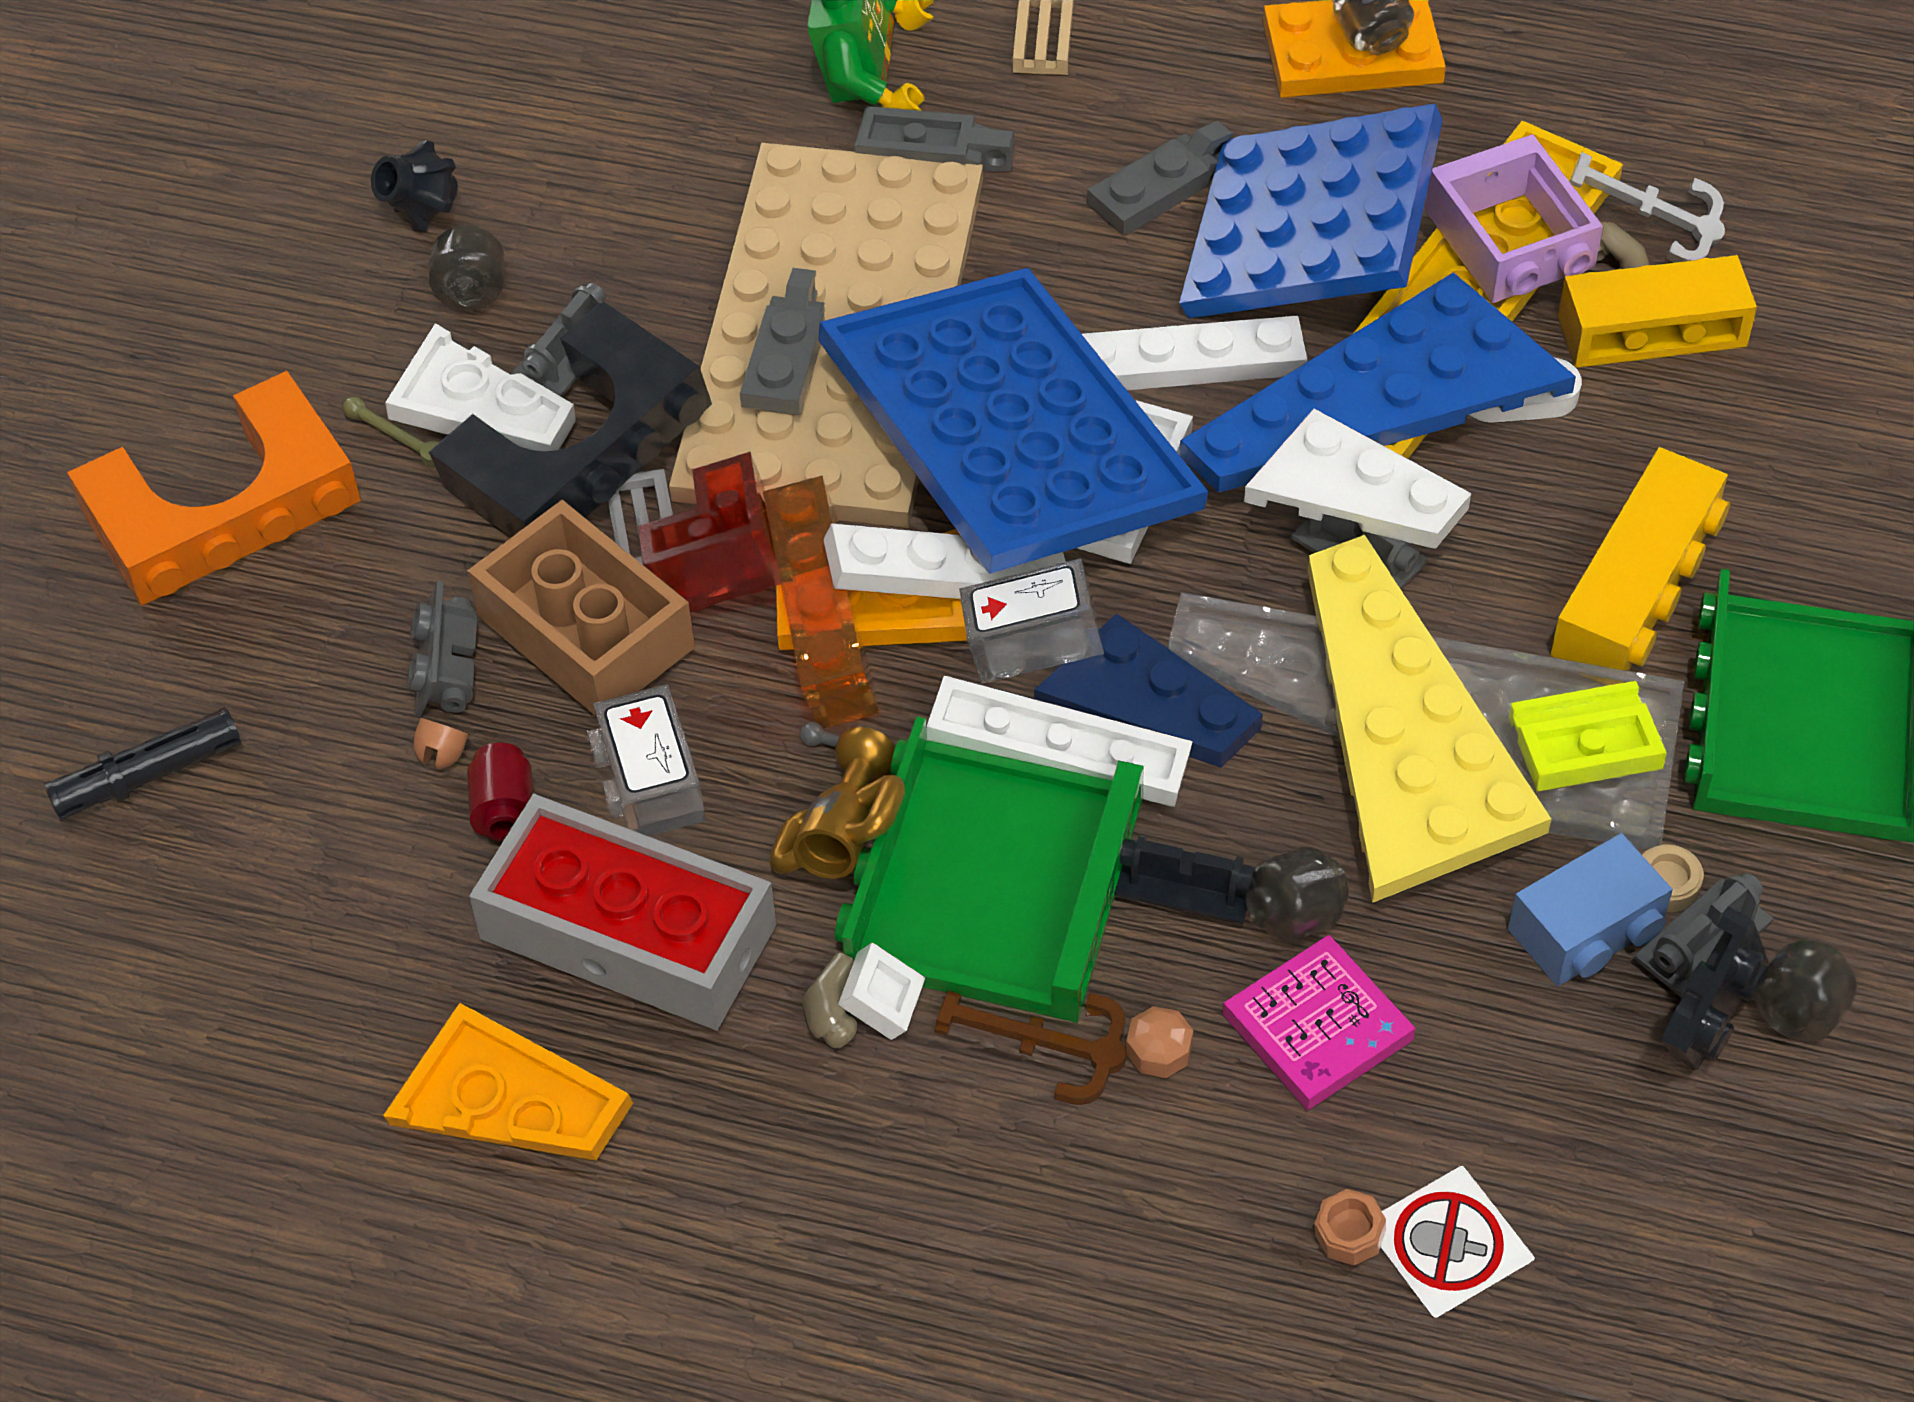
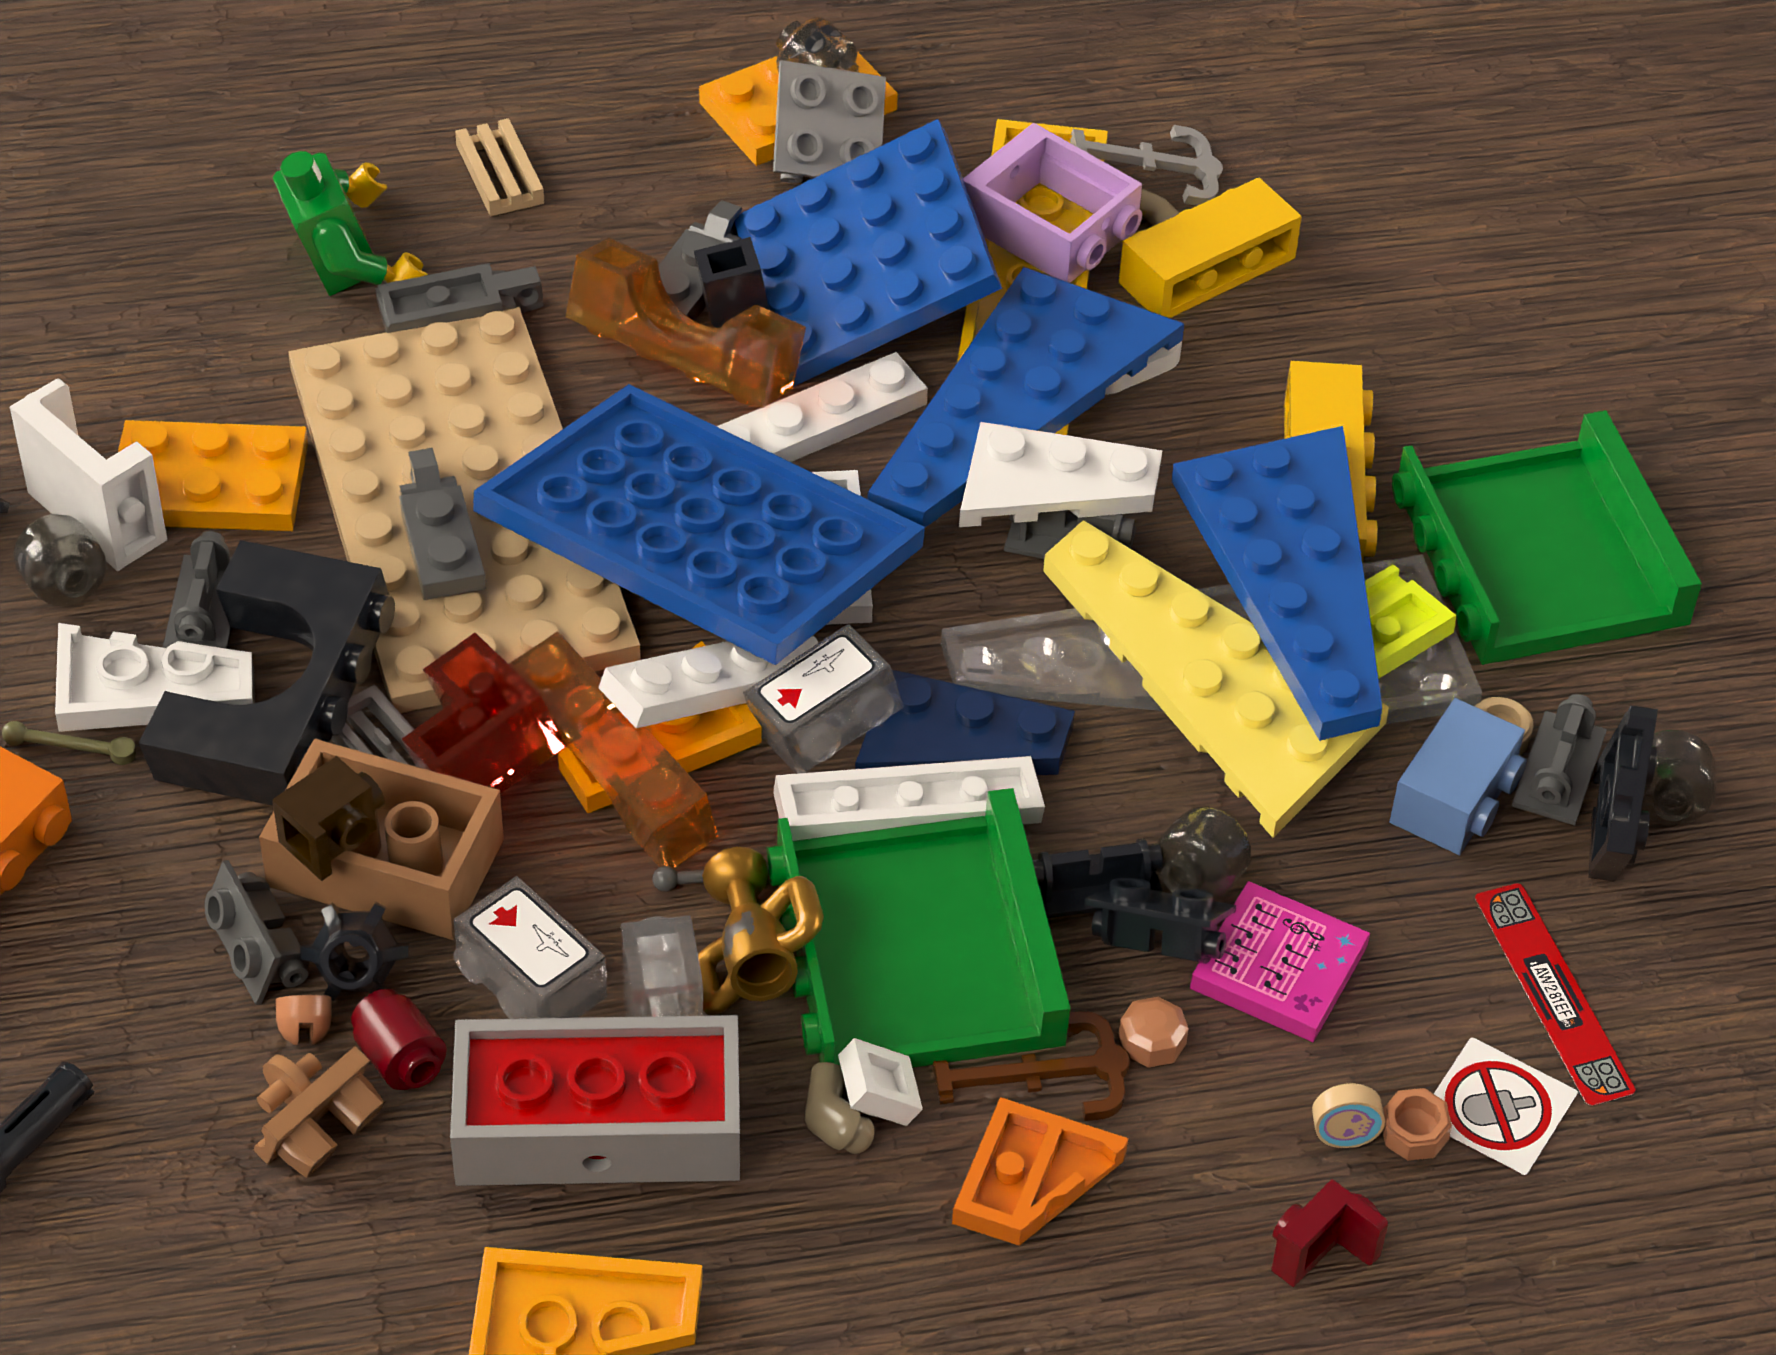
camera: 30 degrees left, 5 degrees down
(371, 835) = (294, 1129): none -> medium nougat hips
(504, 700) = (358, 928): none -> black rock
(522, 571) = (327, 814): none -> dark brown brick
(523, 211) = (68, 477): none -> white panel
(636, 233) = (224, 472): none -> light orange plate
(730, 818) = (661, 968): none -> clear brick
(969, 1126) = (1032, 1171): none -> orange wing
(1072, 188) = (624, 299): none -> clear orange arch
(1173, 207) = (730, 279): none -> black brick
(1196, 1285) = (1327, 1219): none -> dark red bracket
(1202, 923) = (1185, 917): none -> black hinge
(1288, 1193) = (1348, 1115): none -> tan tile
(1351, 70) = (825, 119): none -> light grey hinge
(1536, 635) = (1292, 553): none -> blue wing
(1569, 1157) = (1555, 994): none -> sticker

